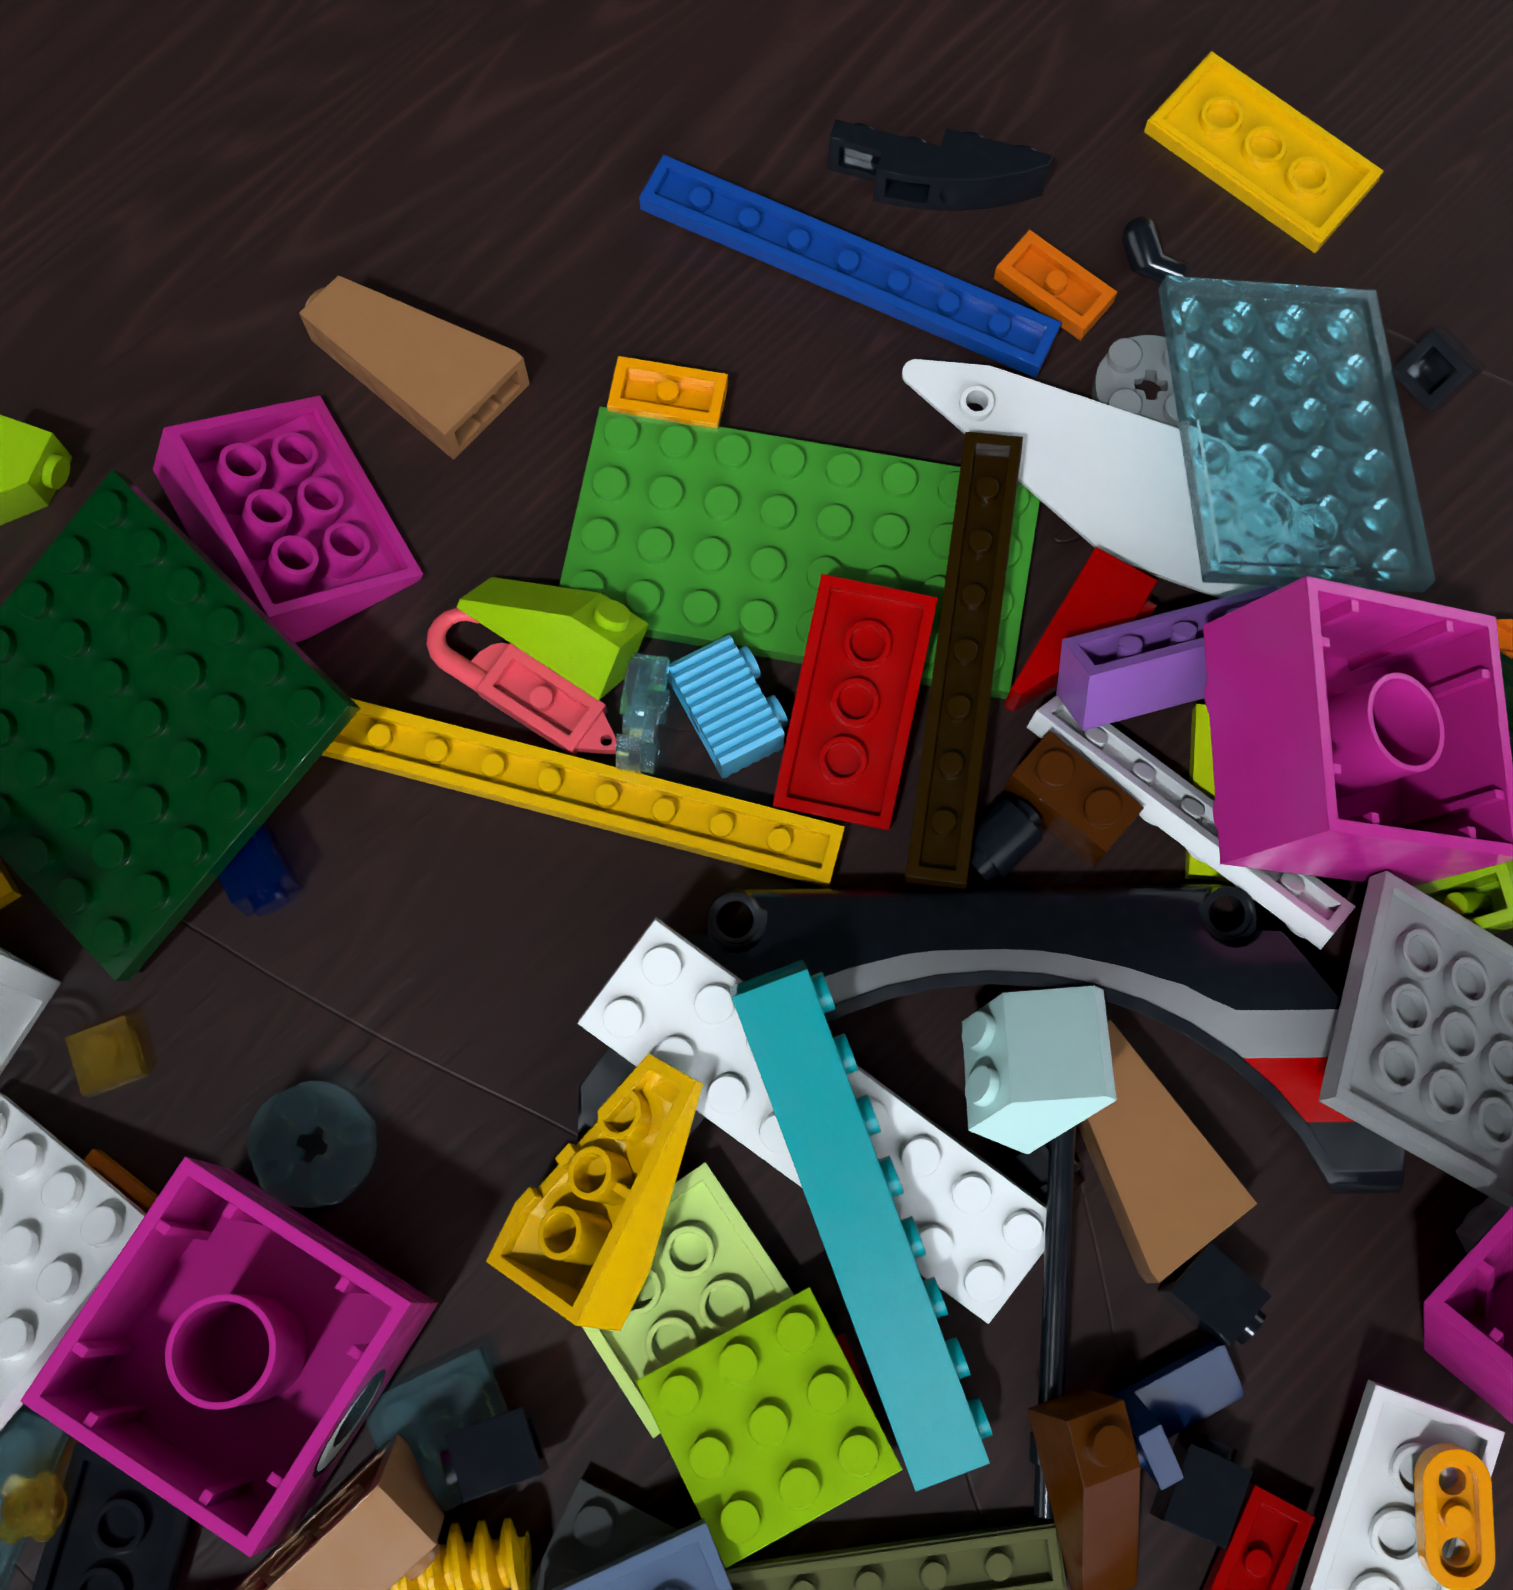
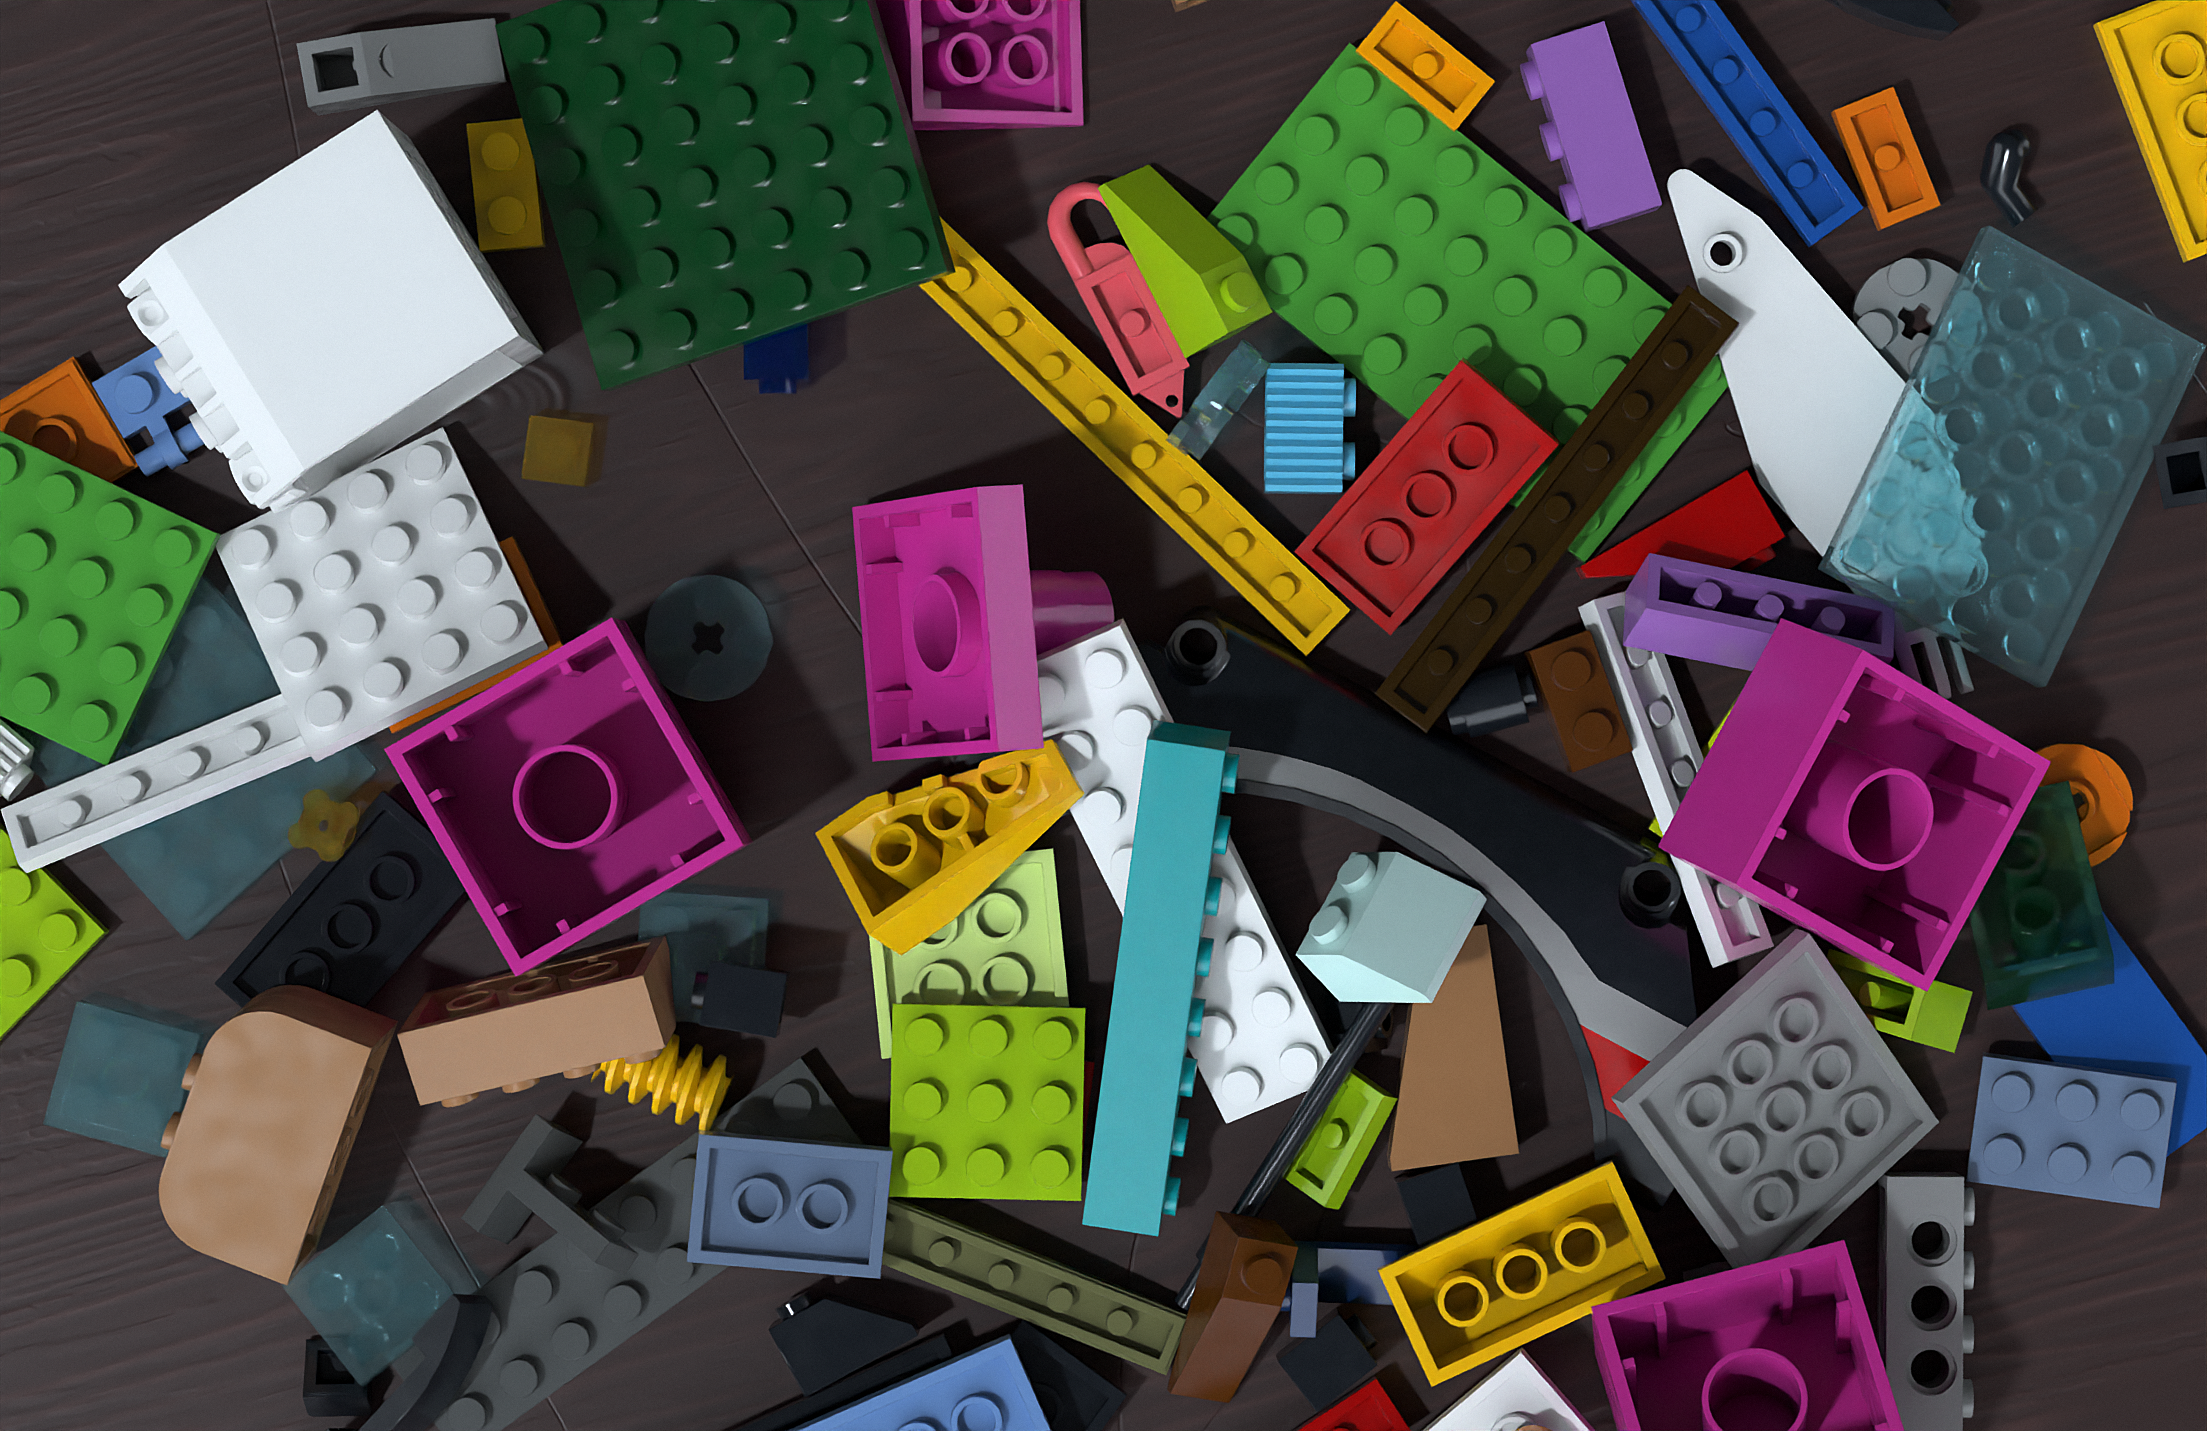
camera: 30 degrees right, 15 degrees up
(515, 999) = (960, 622): none -> dark pink piece
(822, 371) = (1590, 128): none -> medium lavender brick
(1098, 1282) = (1341, 1141): none -> lime plate
(1327, 1314) = (1521, 1273): none -> yellow slope

